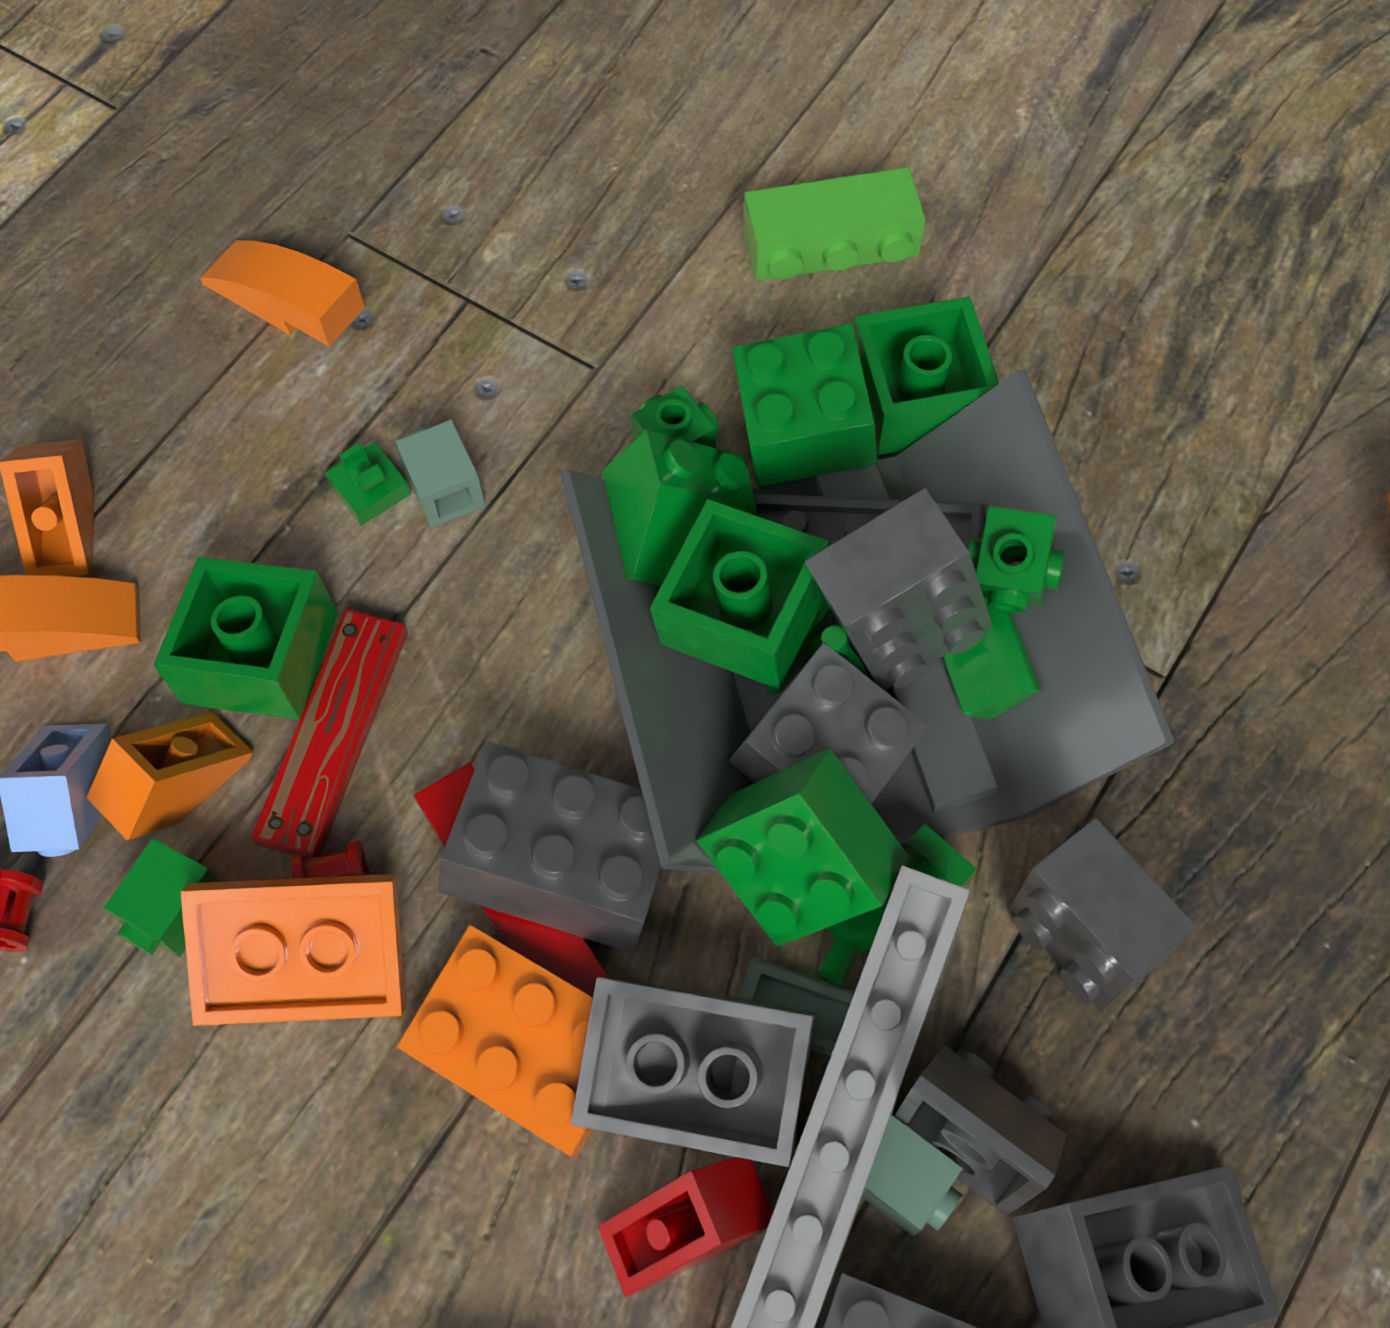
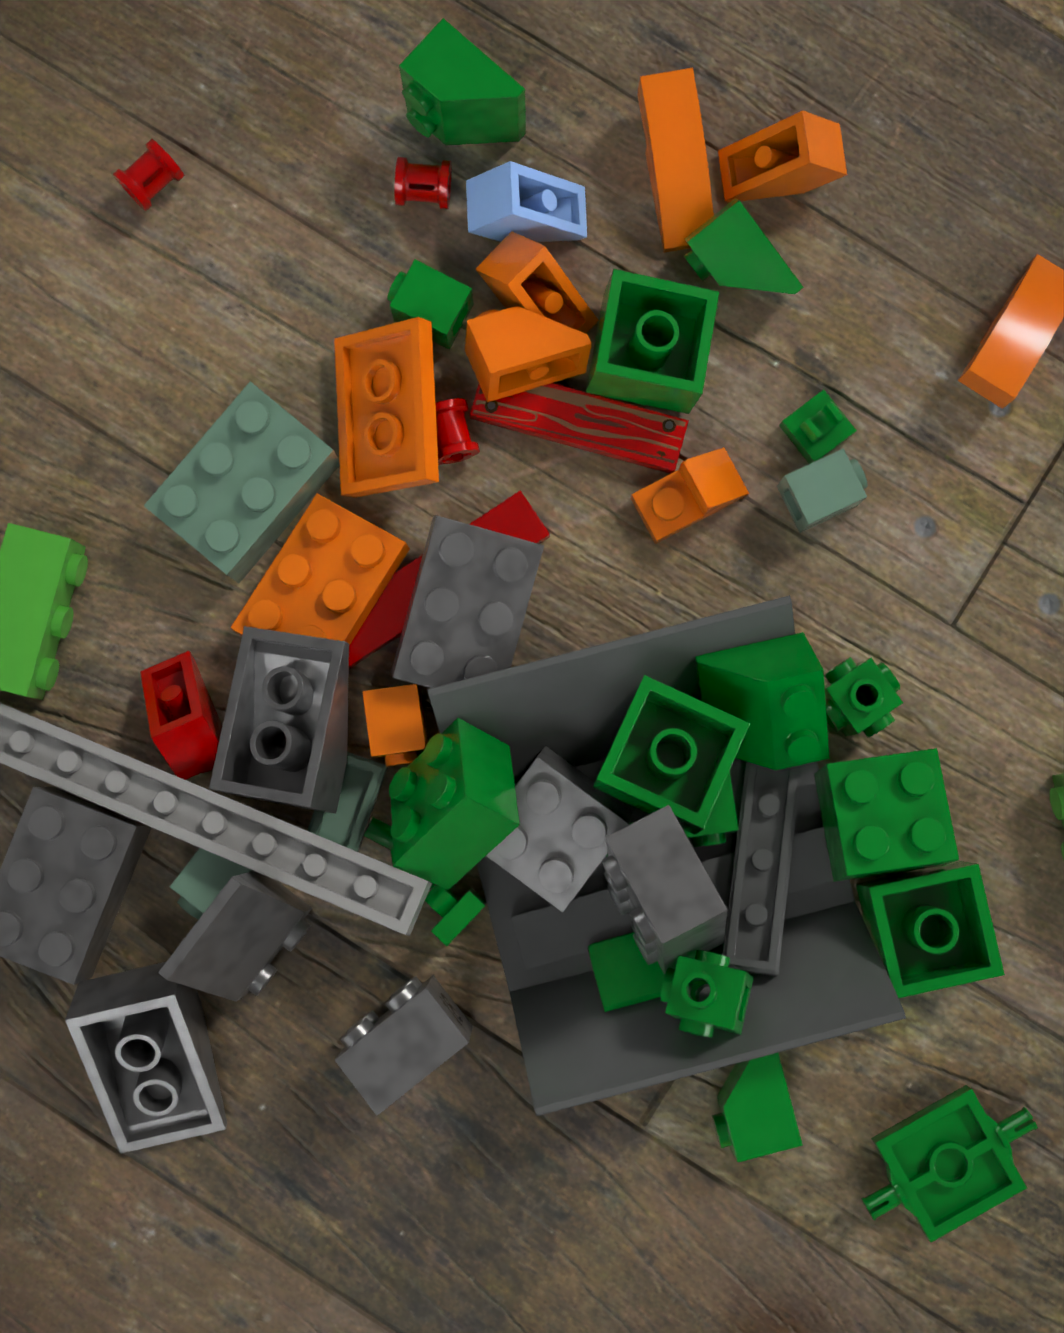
camera: 90 degrees right, 20 degrees up
(151, 547) = (739, 253): none -> green slope
(239, 785) = (522, 351): none -> orange slope
(375, 1141) = (243, 482): none -> sand green brick
(435, 615) = (689, 494): none -> orange slope
(701, 941) = (395, 723): none -> orange brick
(1141, 544) = (756, 1110): none -> green slope
(1167, 371) = (949, 1163): none -> green plate

